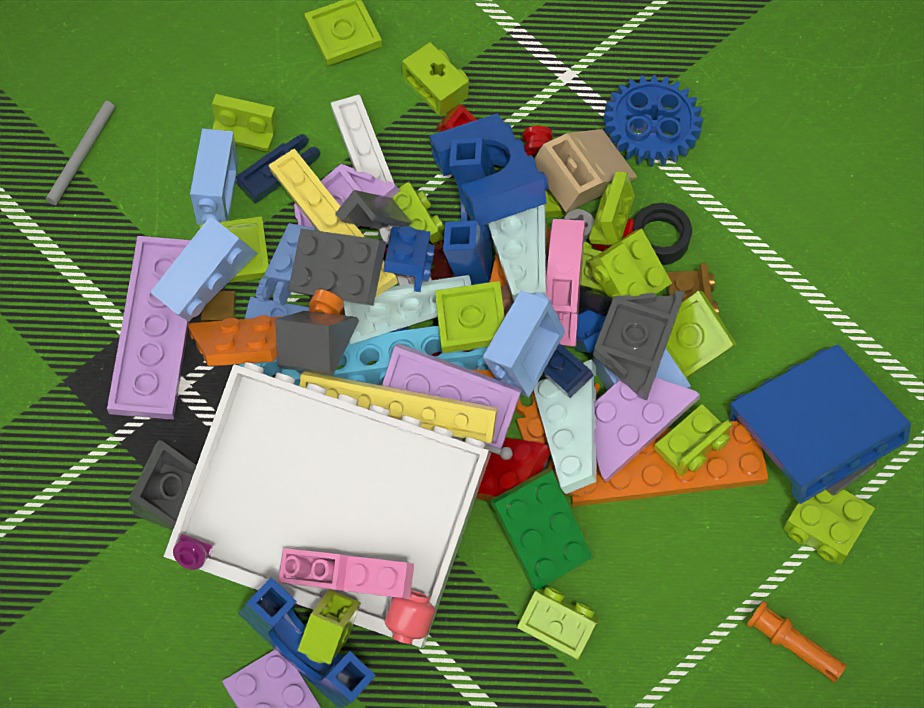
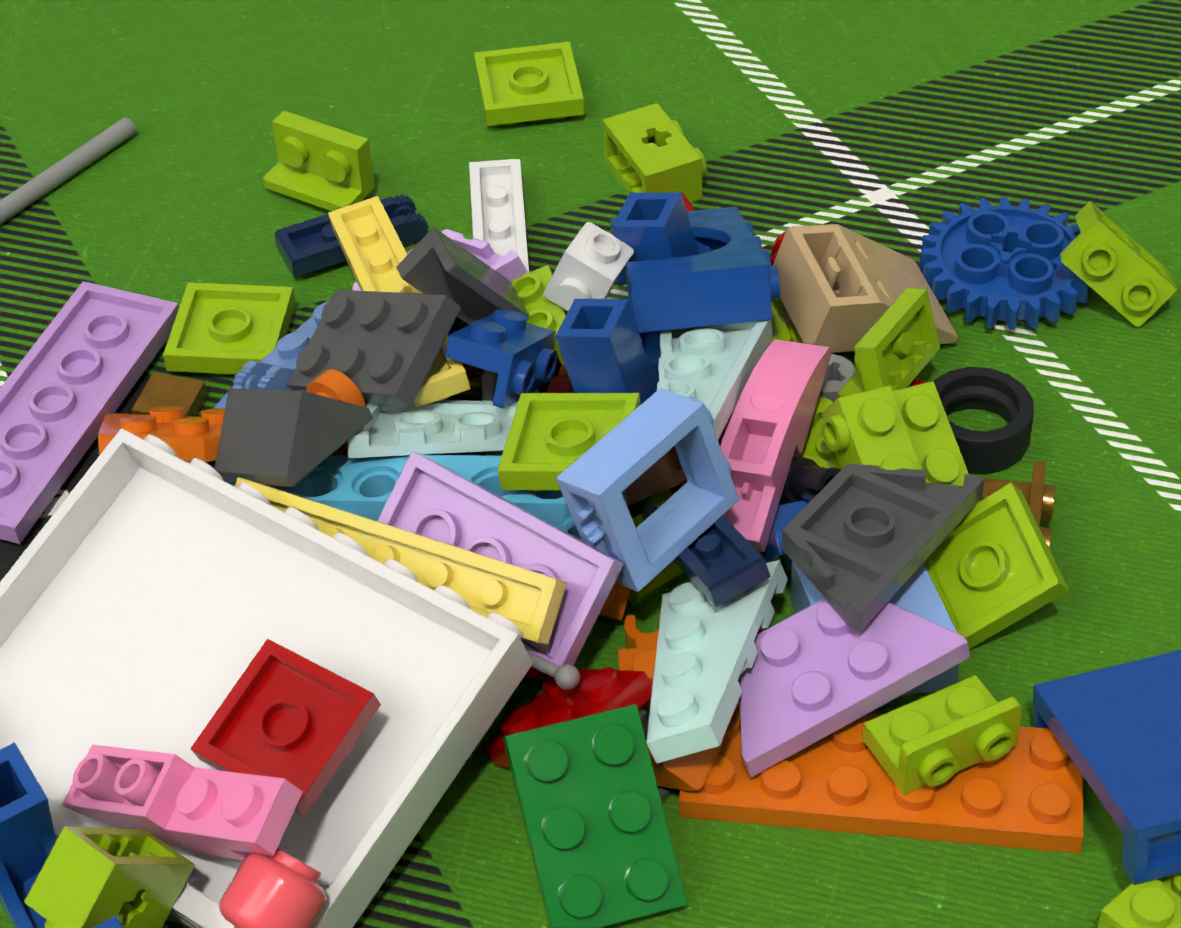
camera: 20 degrees right, 20 degrees down
(202, 269) = (157, 323): light blue wedge -> none
(214, 176) = (242, 184): light blue window -> none
(384, 522) = (287, 722): none -> red plate
(440, 192) = (588, 267): none -> white bracket
(715, 116) = (1117, 266): none -> lime bracket

